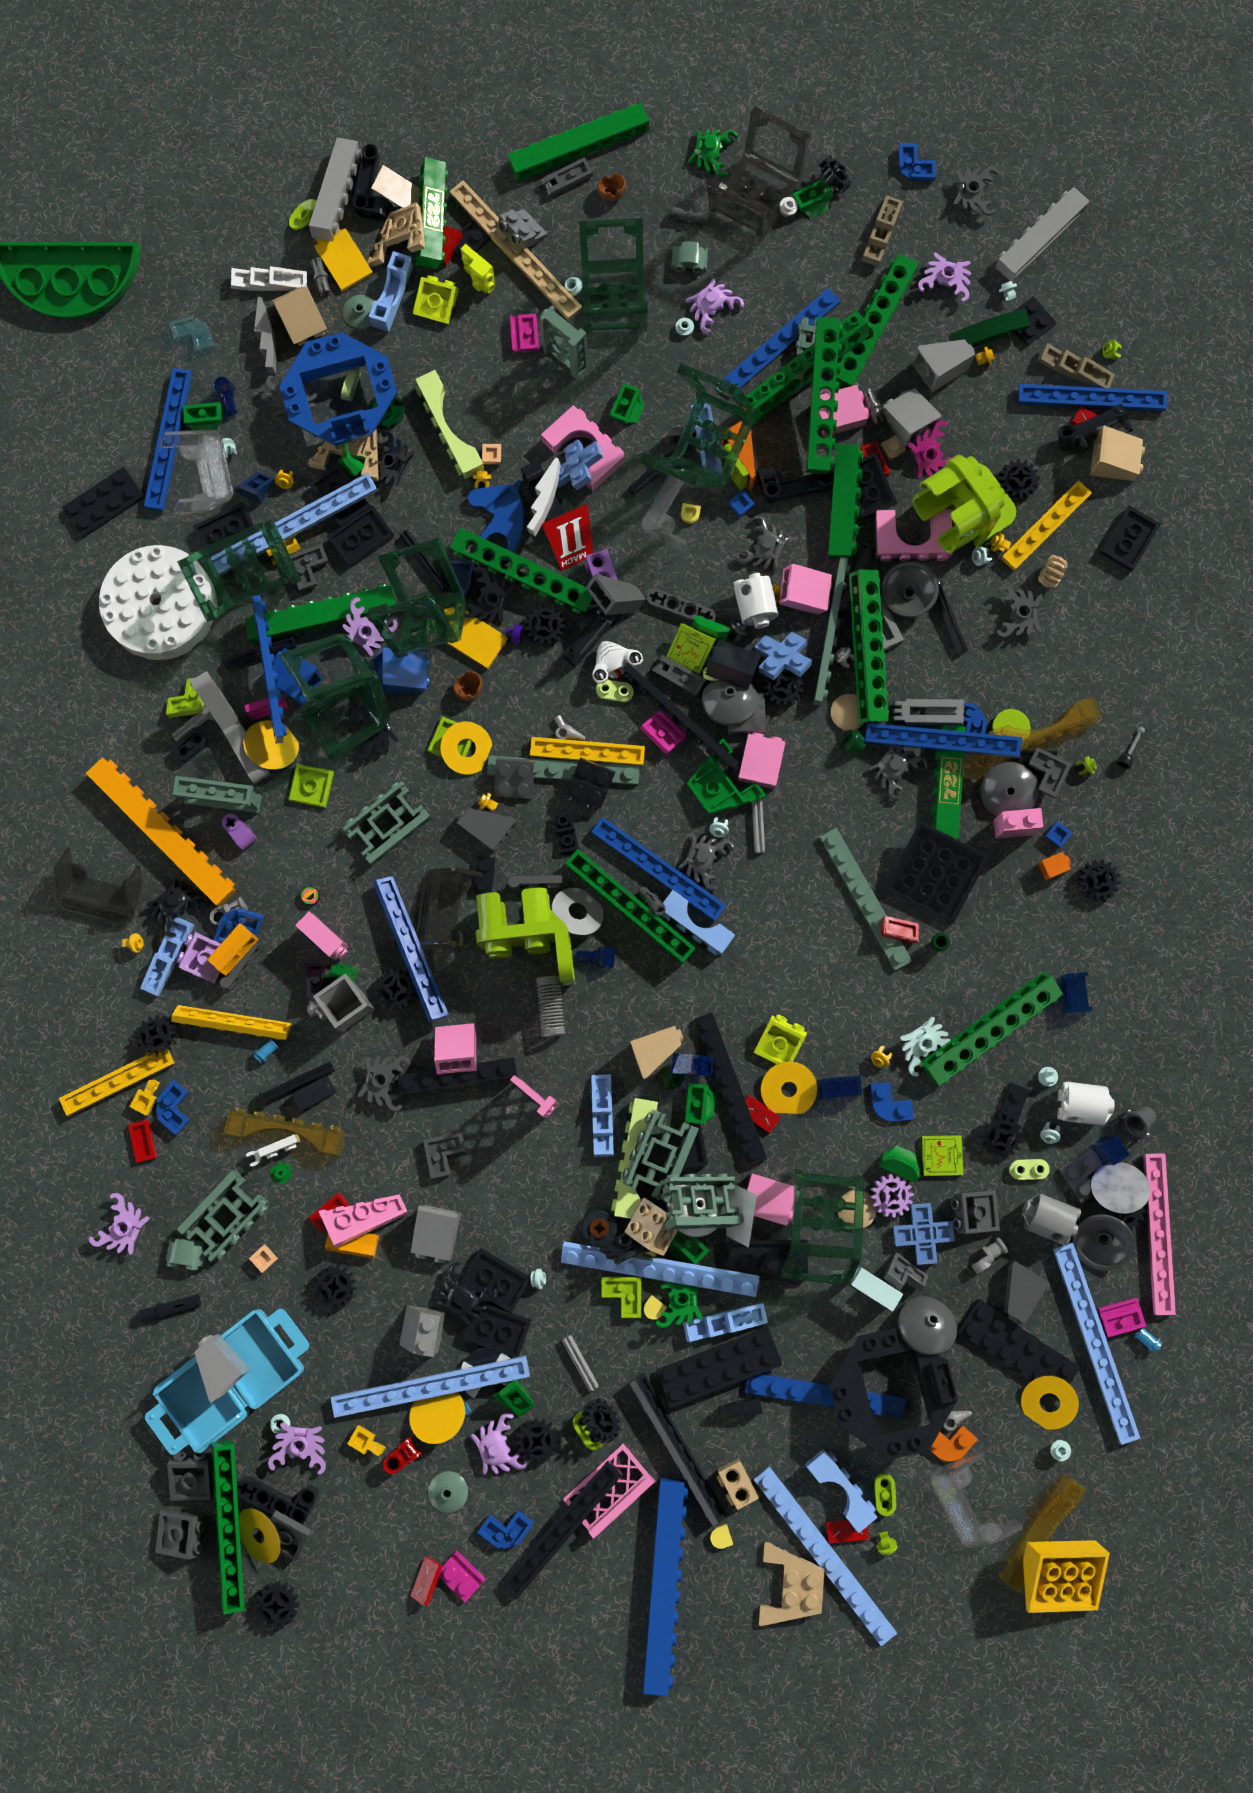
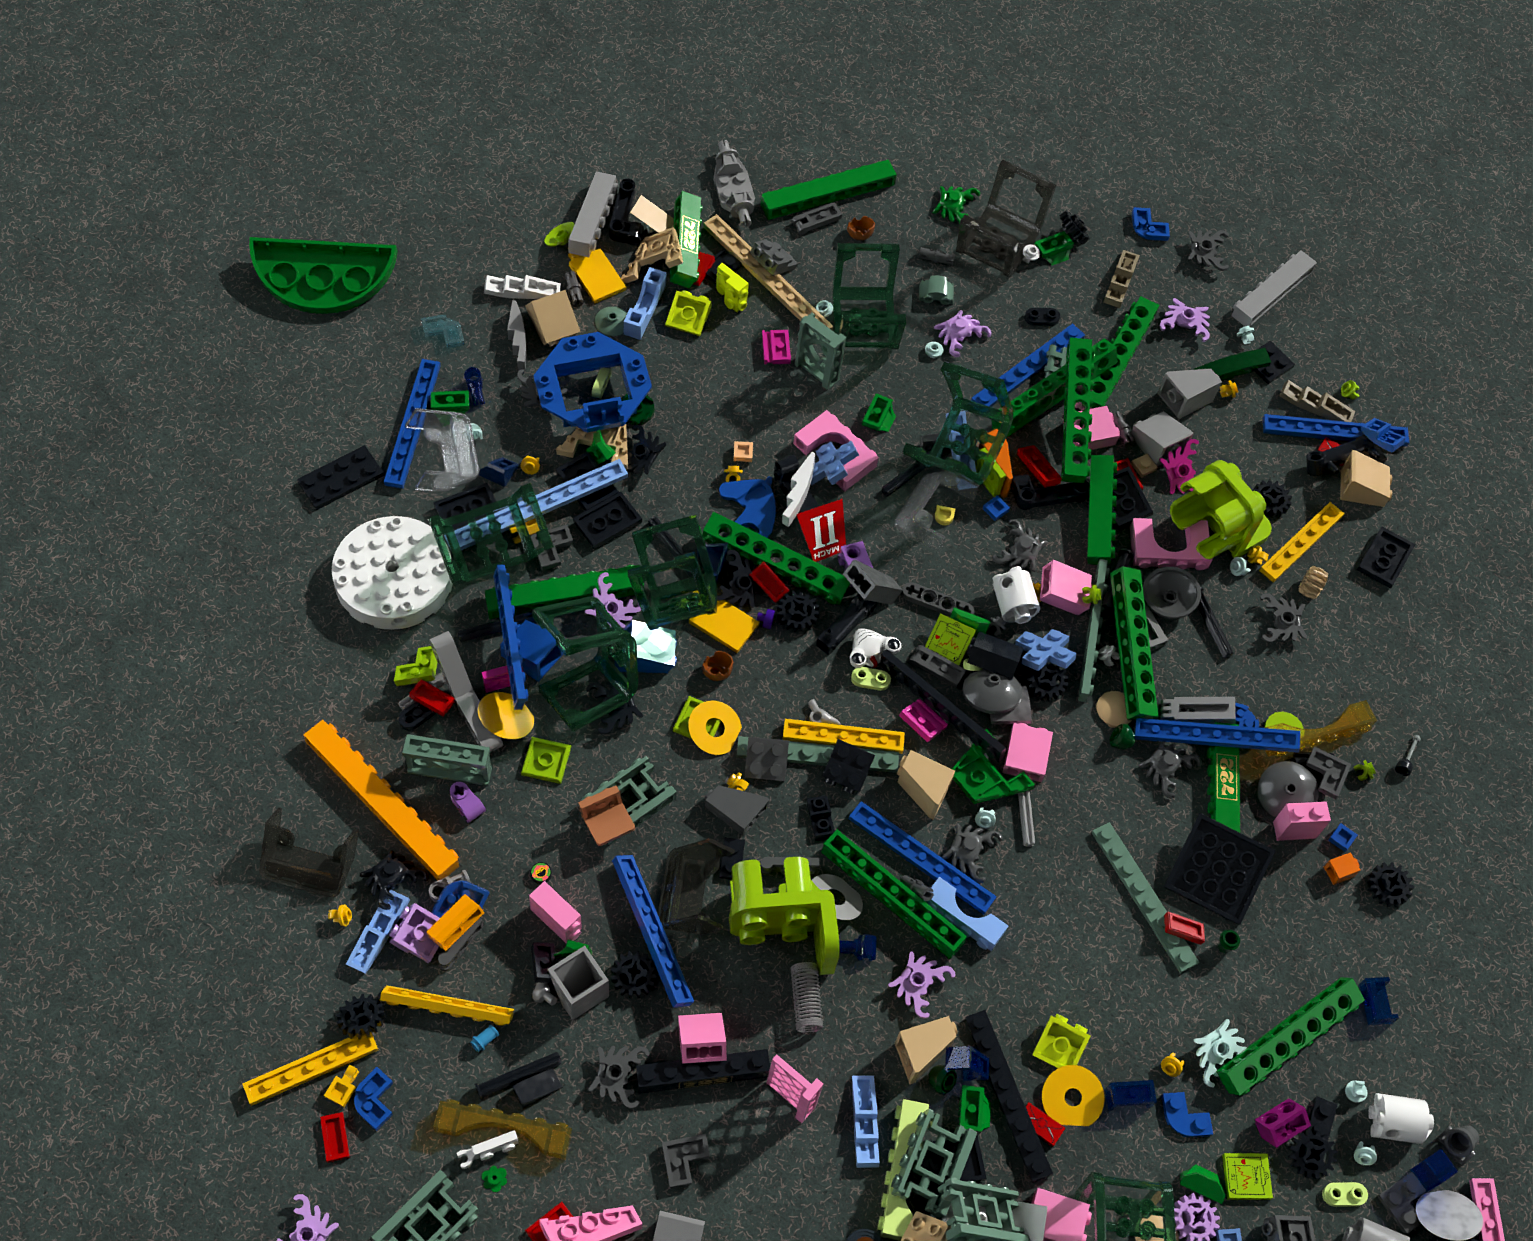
camera: 10 degrees left, 20 degrees down
(201, 730) = (432, 697): none -> red tile
(365, 844) = (606, 816): none -> nougat bracket
(467, 458) = (717, 452): yellowish green arch -> none
(480, 142) = (733, 184): none -> light grey plate
(516, 596) = (769, 582): none -> red tile
(650, 987) = (917, 979): none -> lavender animal
(662, 797) = (924, 781): none -> tan slope
(785, 456) = (1039, 466): none -> red plate
(798, 282) = (1042, 316): none -> black plate
(832, 597) = (1095, 594): none -> lime plate
(976, 1109) = (1282, 1122): none -> magenta brick
(1138, 405) = (1379, 434): none -> blue slope

